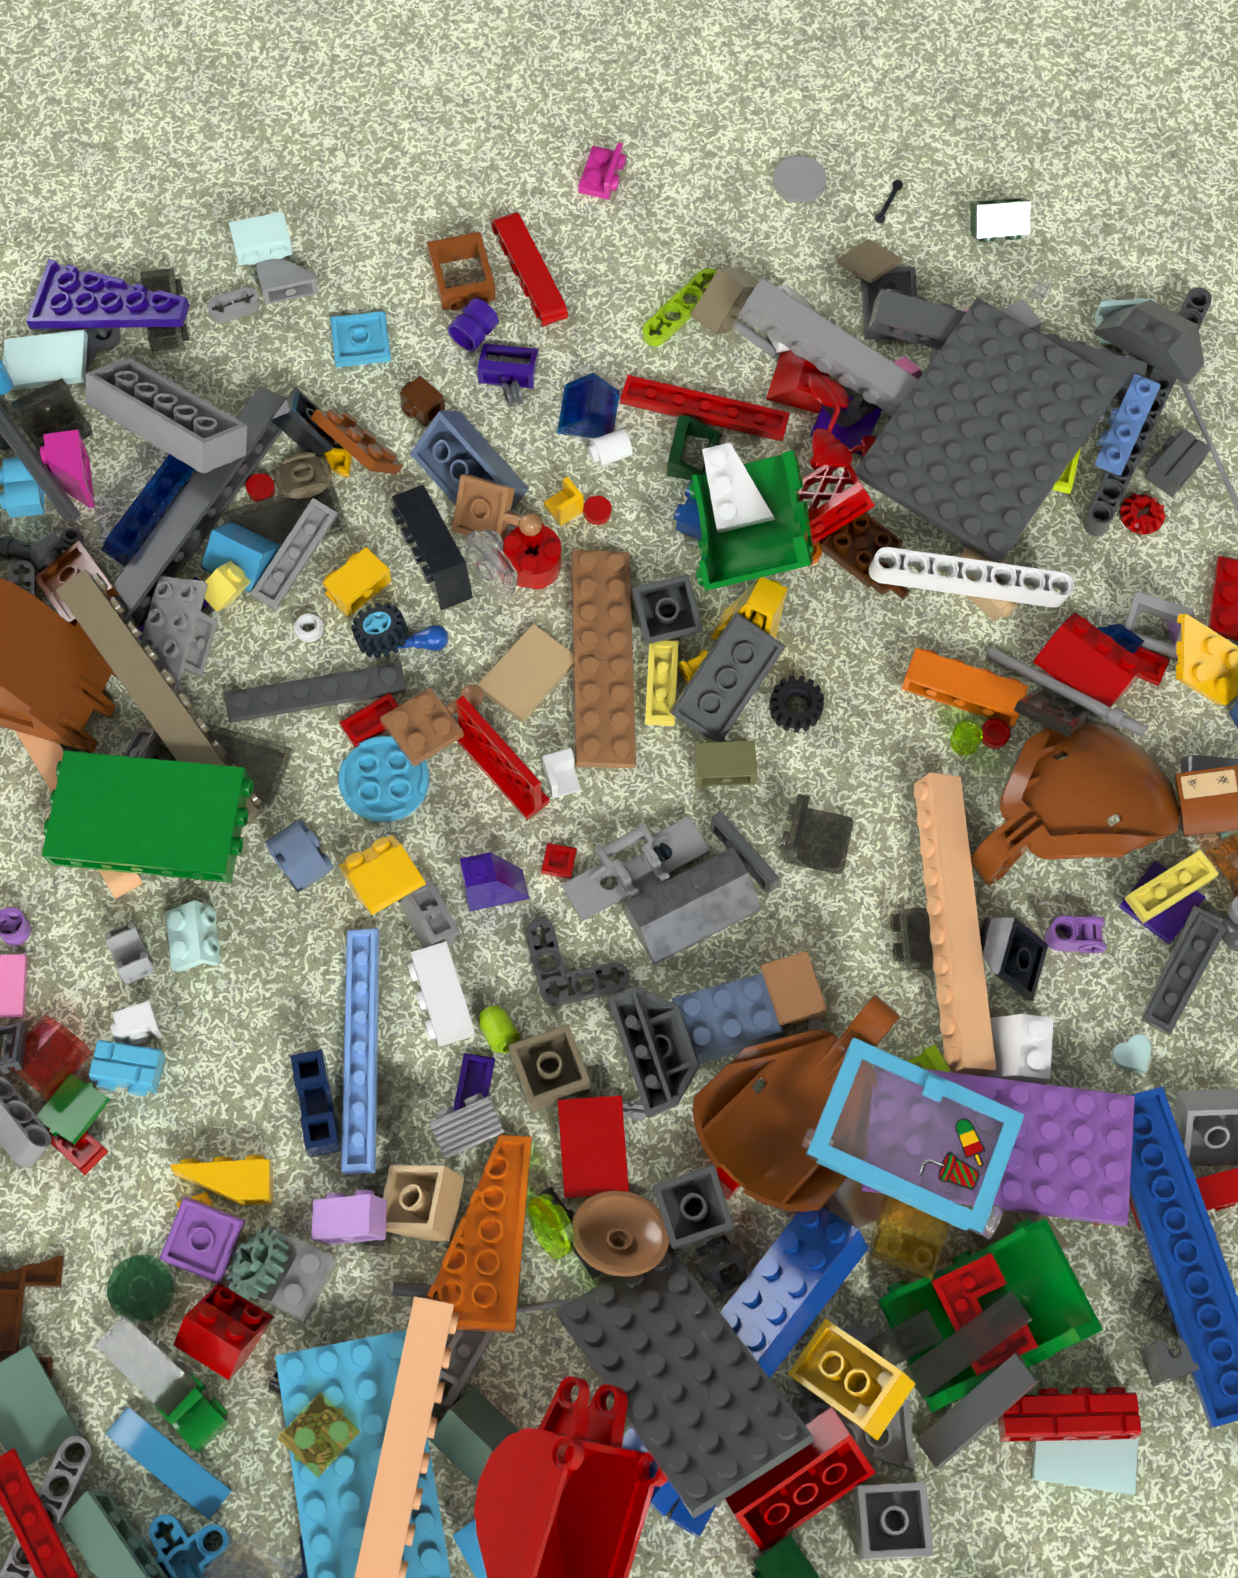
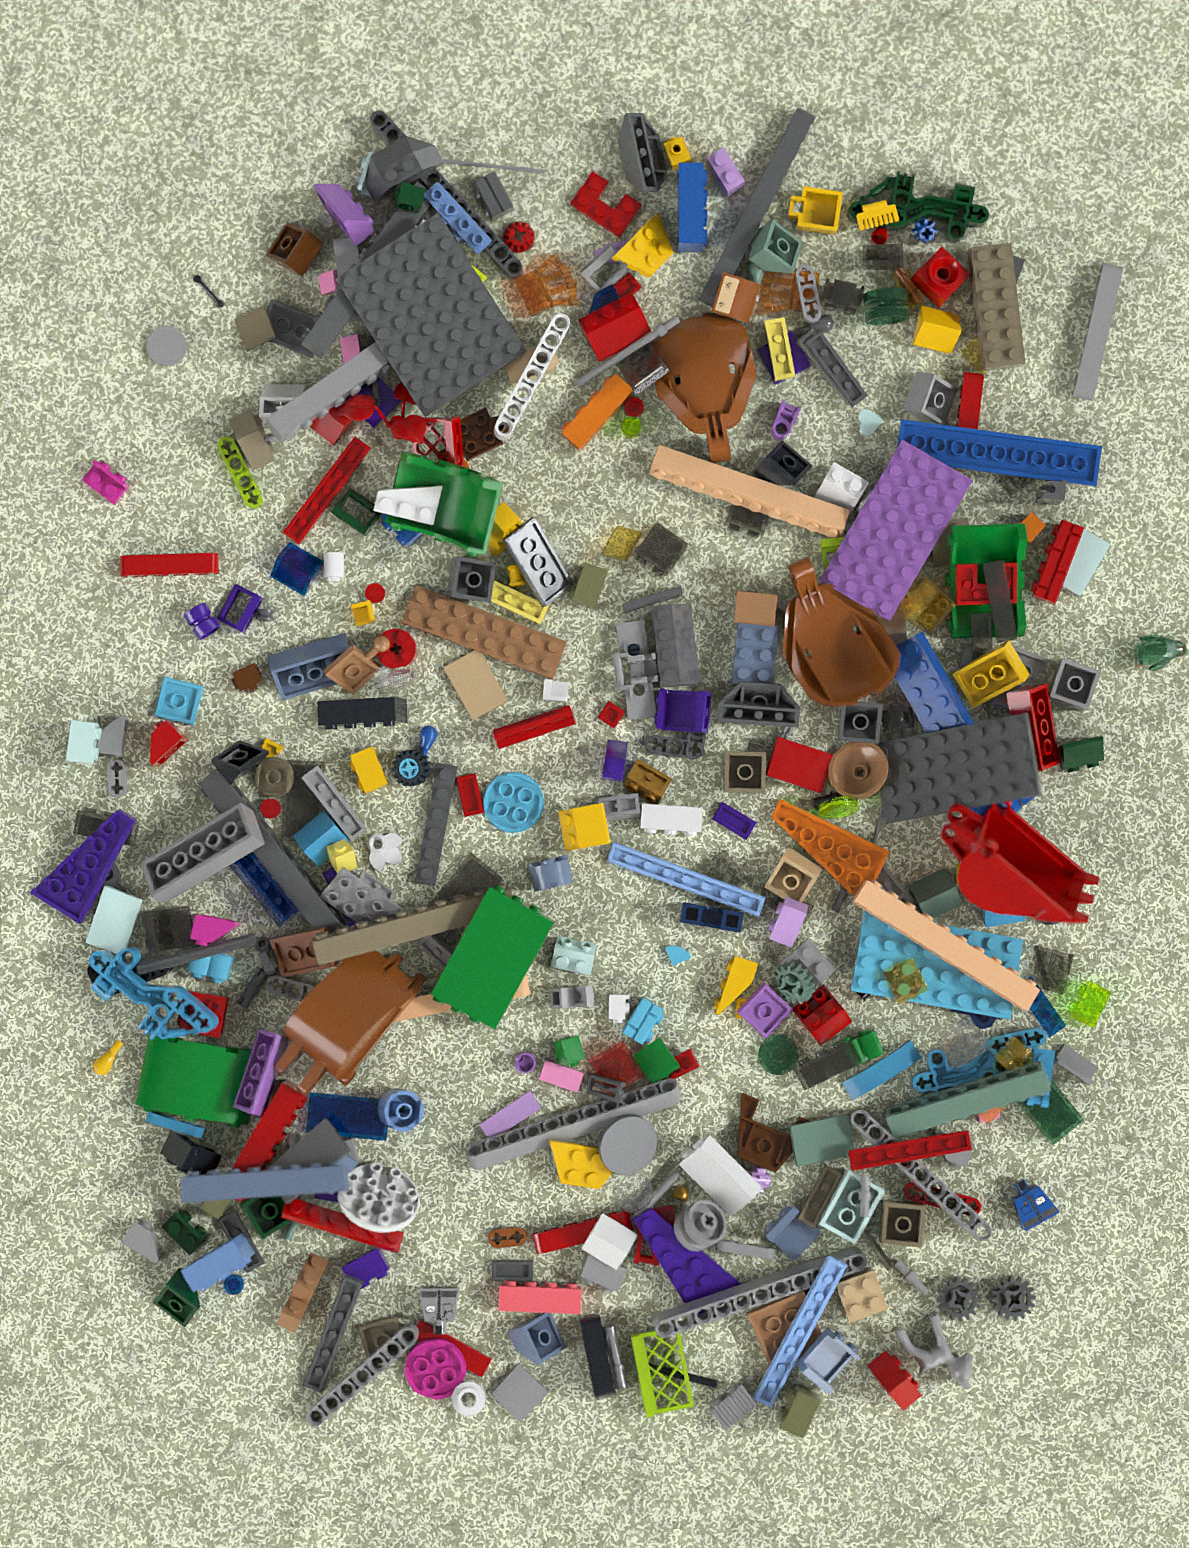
camera: 65 degrees left, 20 degrees up
(47, 979) = (569, 1051): none -> green brick
(244, 1080) = (677, 954): none -> medium azure tile
(255, 645) = (386, 852): none -> white plate
(297, 332) = (165, 742): none -> red slope
(308, 620) = (383, 808): white plate -> none
(357, 441) = (267, 733): dark orange plate -> none
(426, 725) = (489, 763): medium nougat plate -> none
(458, 249) = (134, 606): dark orange window -> none
(467, 1126) = (759, 833): light grey brick -> none
(482, 941) = (647, 782): none -> pearl gold bracket
(498, 1028) = (707, 793): lime brick -> none
(603, 950) = (683, 711): none -> dark purple panel
(796, 688) = (560, 512): black tyre -> none
(802, 781) = (621, 543): none -> clear yellow piece
(916, 1138) = (878, 578): door -> none
(977, 1410) = (1036, 611): dark grey tile -> none
(989, 270) = (294, 248): none -> reddish brown slope
(999, 219) = (259, 223): brick -> none
(1065, 295) = (345, 212): none -> medium lavender slope
(1081, 557) = (535, 292): none -> clear orange plate
(1097, 1354) = (1033, 526): none -> orange brick
(1123, 354) = (409, 197): none -> dark green brick

